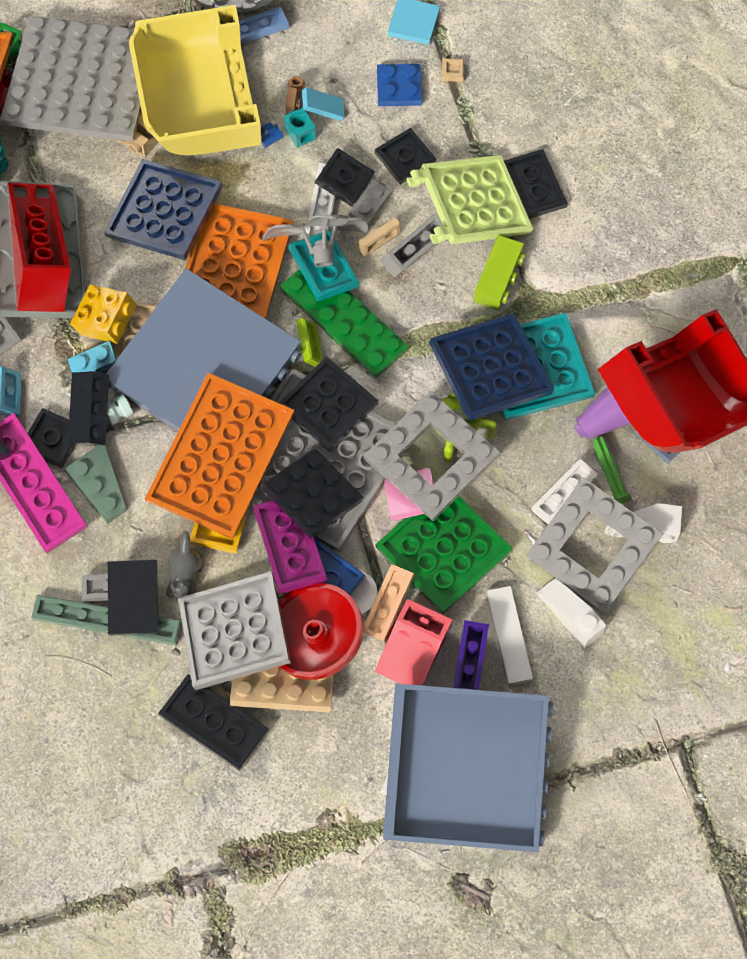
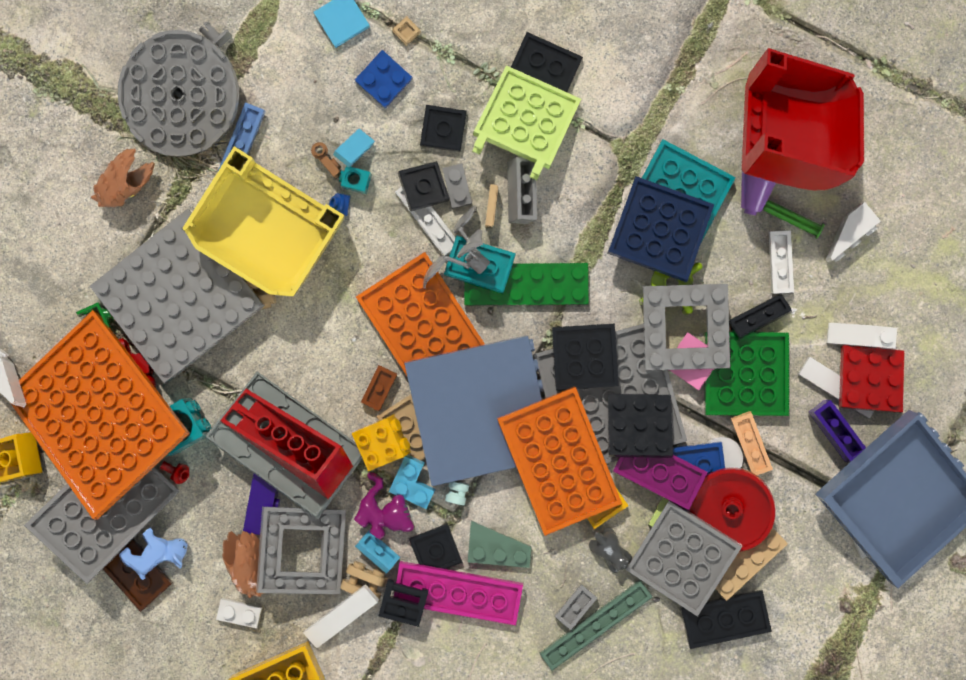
camera: 40 degrees left, 20 degrees up
(49, 377) = (393, 516): none -> magenta animal
(88, 408) = (444, 514): black brick -> none
(133, 597) = (601, 599): black tile -> none
(148, 280) = (379, 388): none -> dark orange plate
(163, 209) = (335, 330): dark blue plate -> none
(309, 341) = (526, 324): lime plate -> none
(413, 644) = (794, 454): coral slope -> none
(499, 273) = (592, 153): lime brick -> none
(501, 514) = (759, 316): none -> black tile
(543, 652) = (871, 379): none -> red plate
(640, 542) = (865, 305): light grey plate -> none

